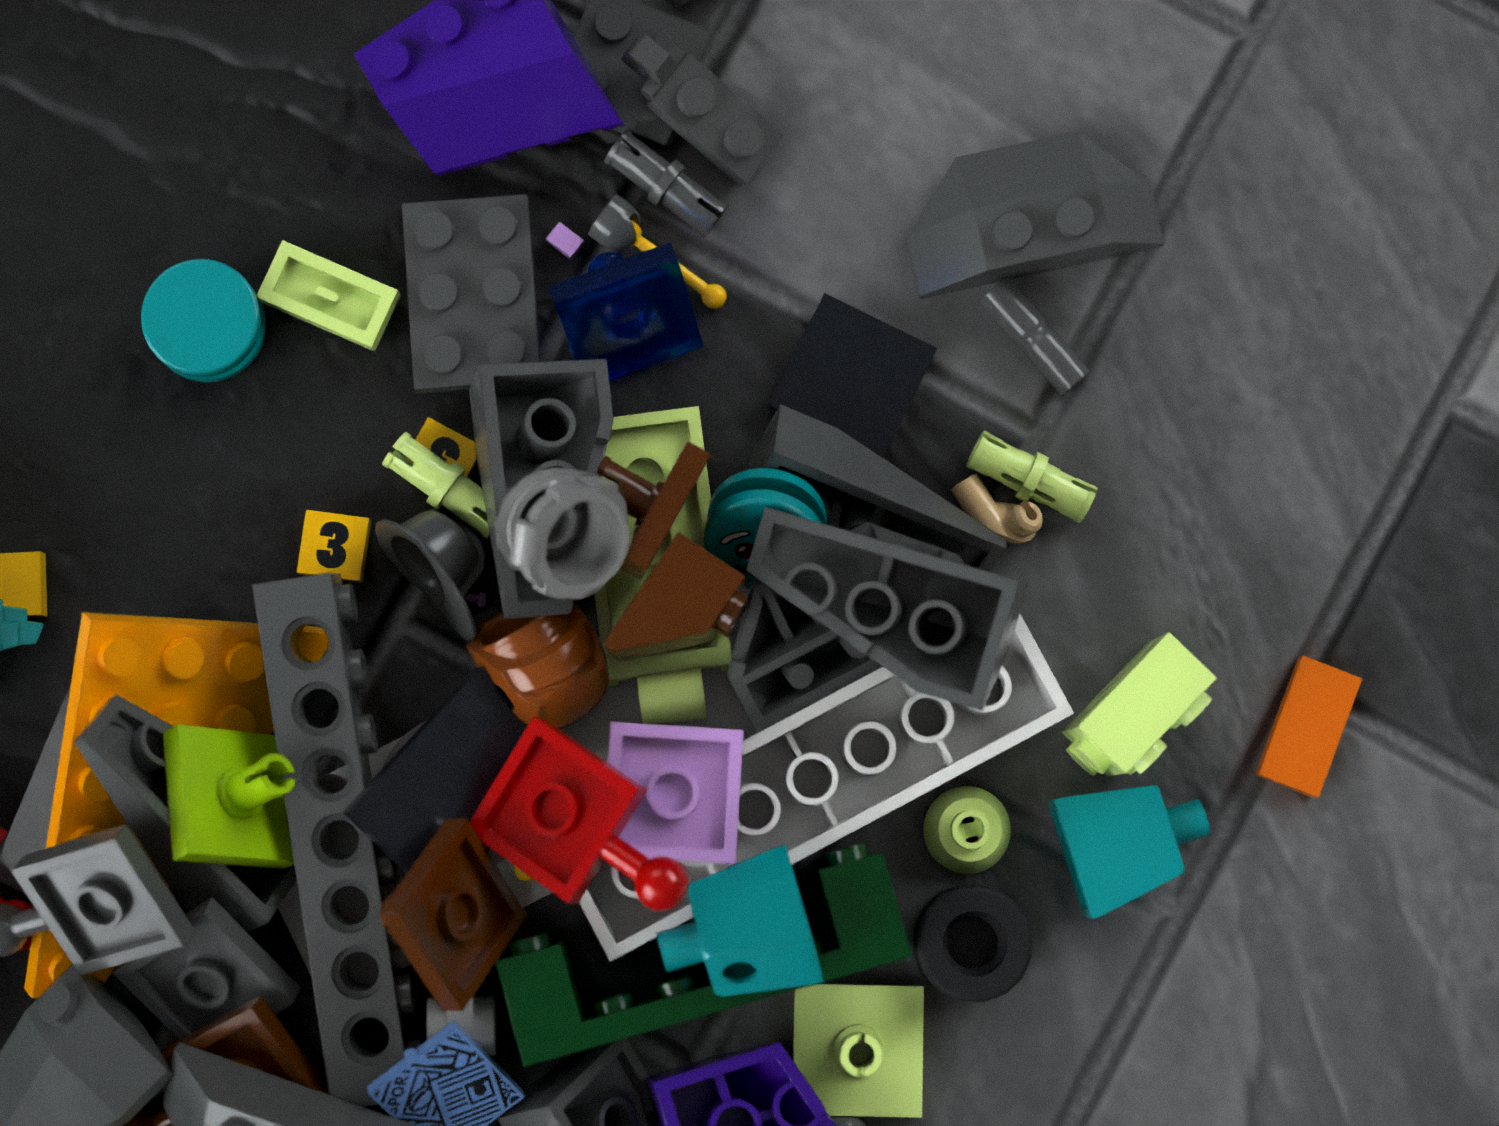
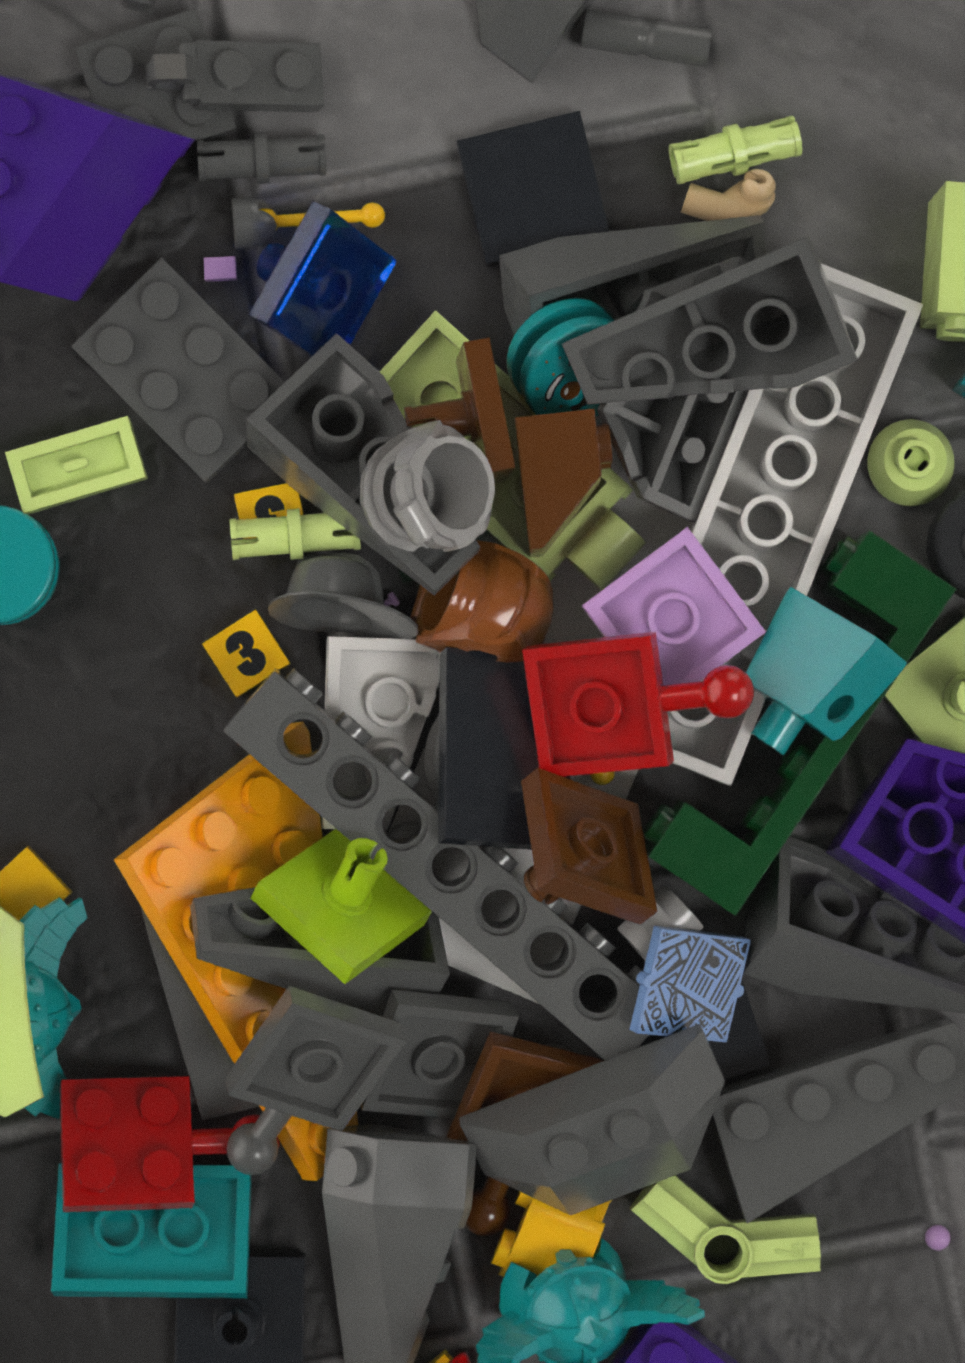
camera: 35 degrees left, 5 degrees up
(410, 667) = (386, 690): none -> white wing

